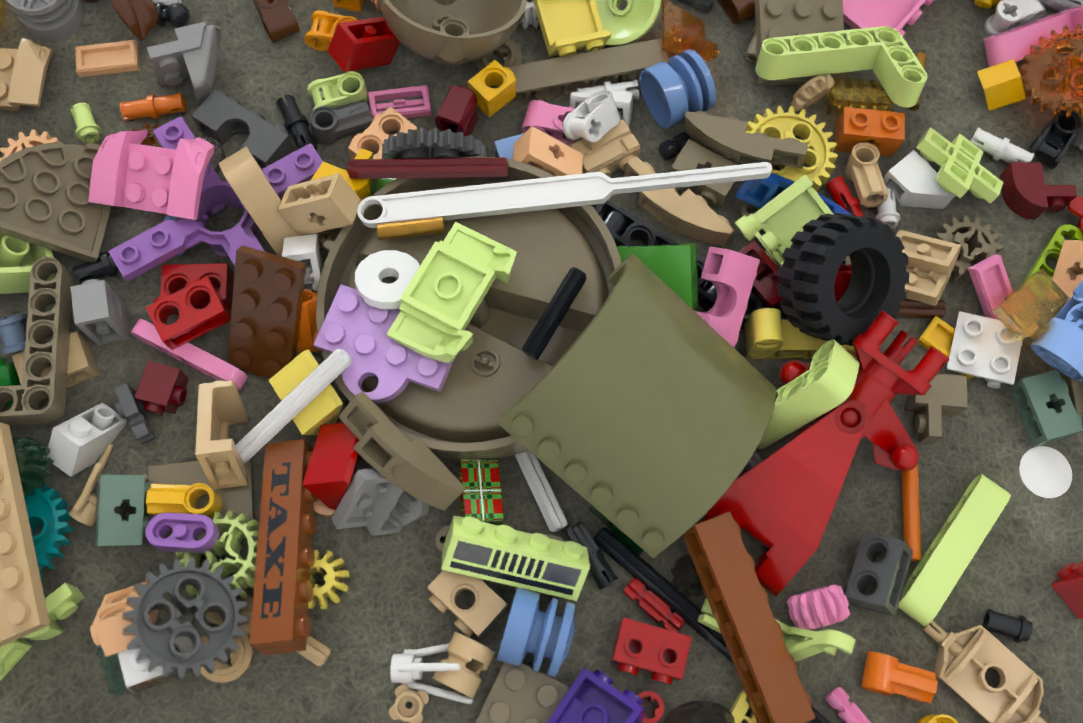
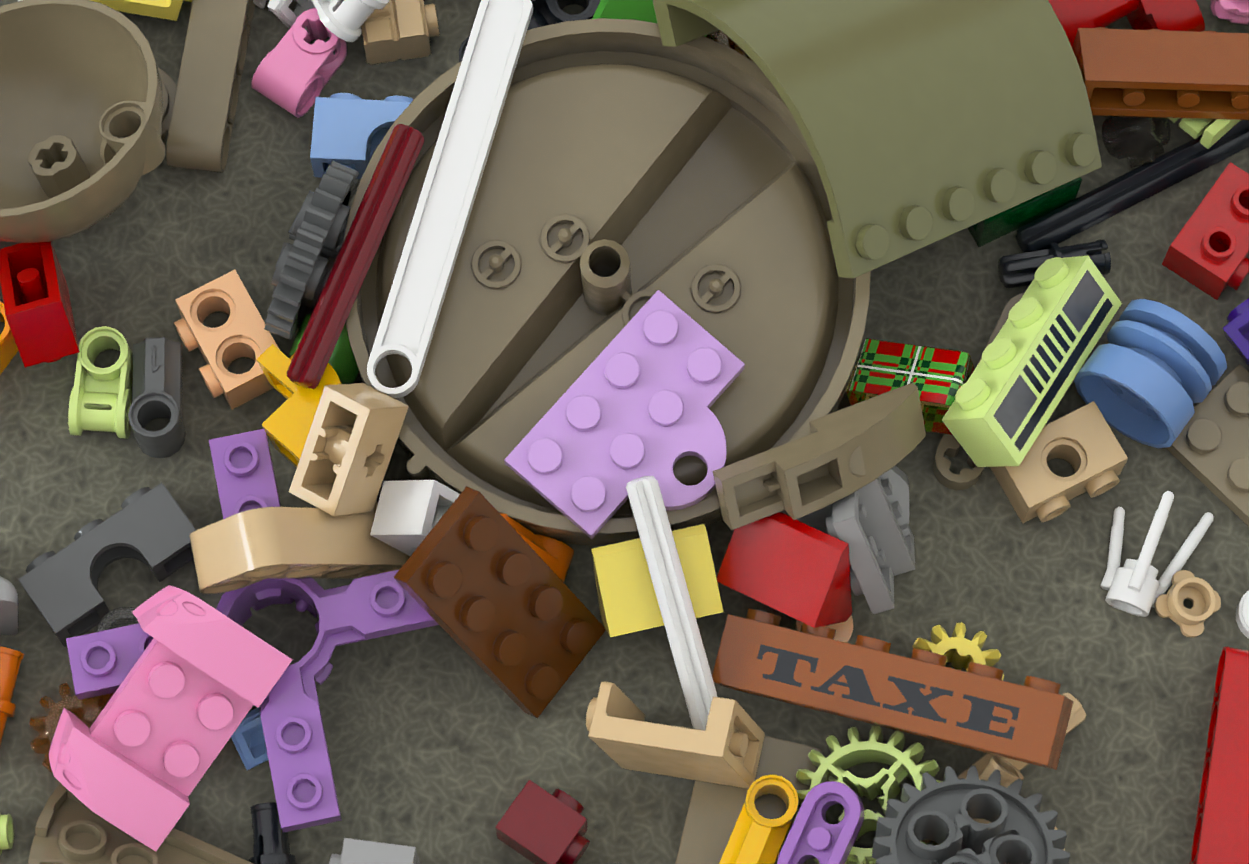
camera: 65 degrees left, 0 degrees up
(178, 275) = (370, 719): red brick -> none
(190, 355) = (496, 770): bright pink beam -> none
(191, 321) = (457, 726): red brick -> none
(295, 122) = (128, 474): black pin -> none
(381, 265) = (514, 354): white tile -> none
(408, 108) = (169, 250): bright pink tile -> none
(411, 228) = (451, 317): pearl gold piece -> none
(449, 292) = (608, 280): yellowish green piece -> none
(458, 111) = (245, 200): dark red brick -> none
(472, 658) = (1142, 488): tan wheel -> none
(492, 99) = (227, 140): yellow brick -> none
(542, 491) = (932, 301): white axle -> none
(547, 153) = (388, 78): light nougat brick -> none
(554, 313) = (691, 147): black axle -> none
(653, 605) = (1158, 206): red axle -> none

